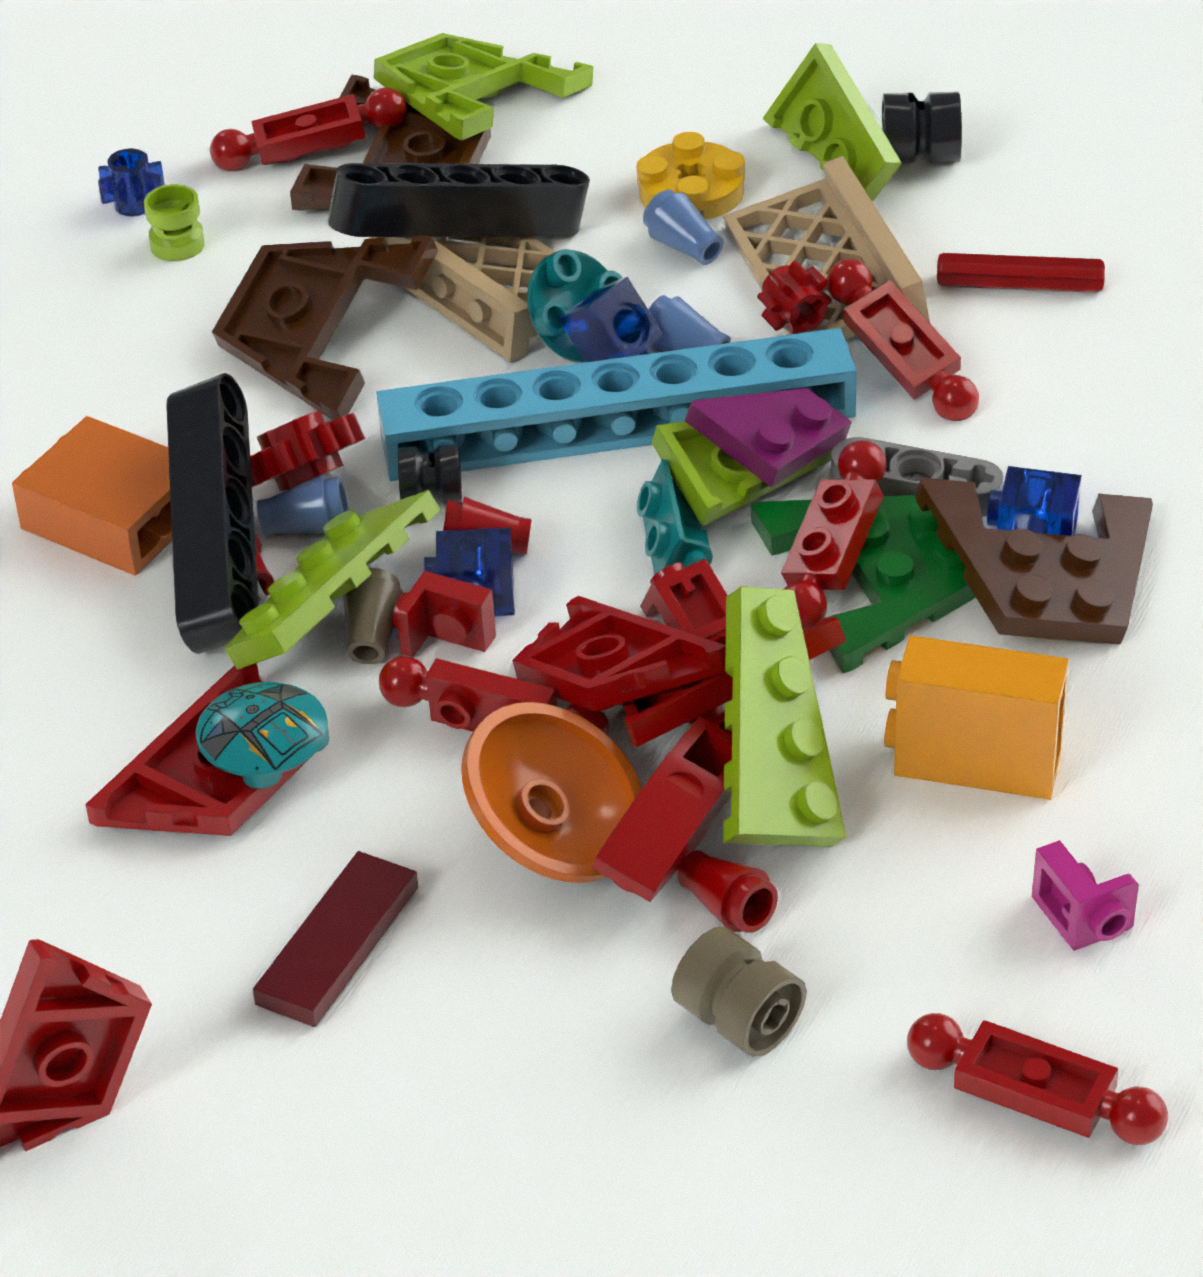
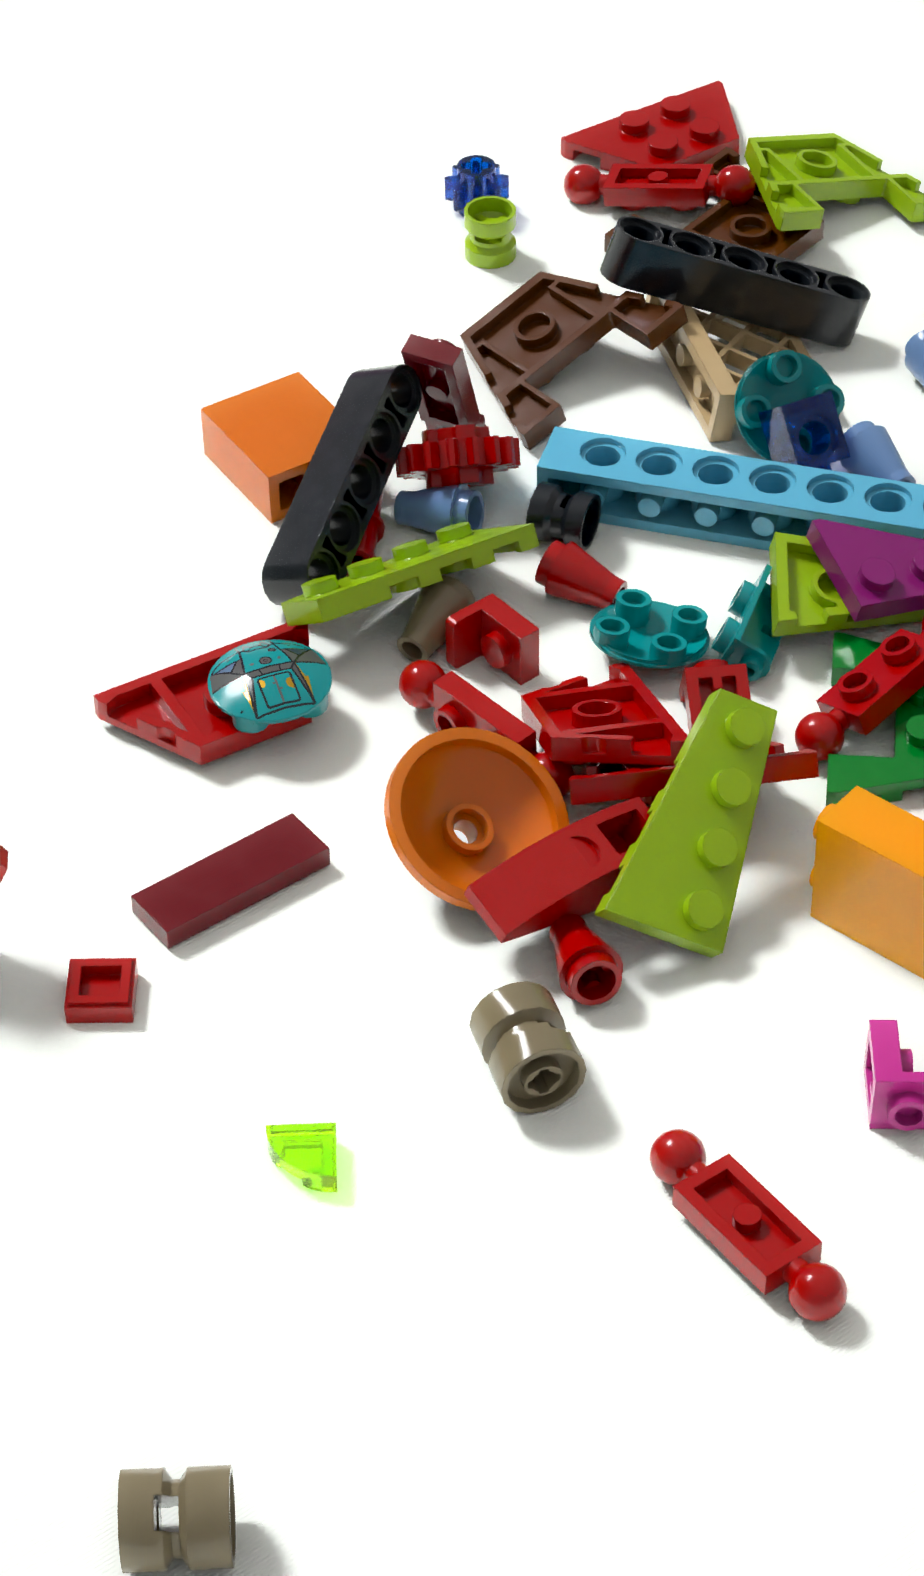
camera: 25 degrees right, 0 degrees up
(262, 378) = (445, 383): none -> dark red hinge
(279, 1092) = (101, 990): none -> red tile
(280, 74) = (672, 131): none -> red wing
(480, 559) = (554, 604): clear blue brick -> none
(582, 559) = (650, 631): none -> teal dish
(587, 1171) = (306, 1153): none -> clear neon green tile

